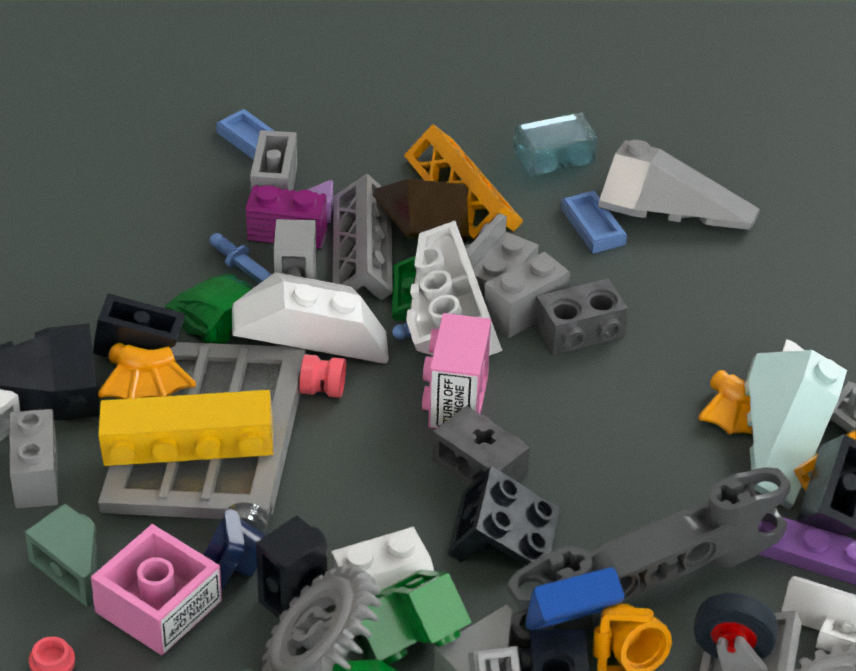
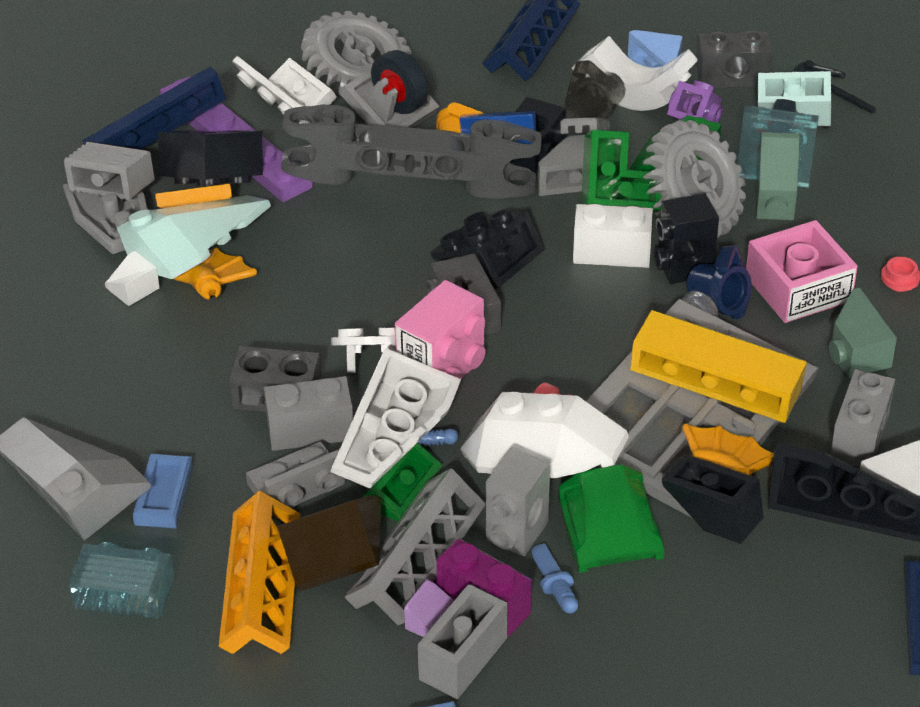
camera: 150 degrees left, 0 degrees up
(543, 361) = (355, 339): none -> white plate

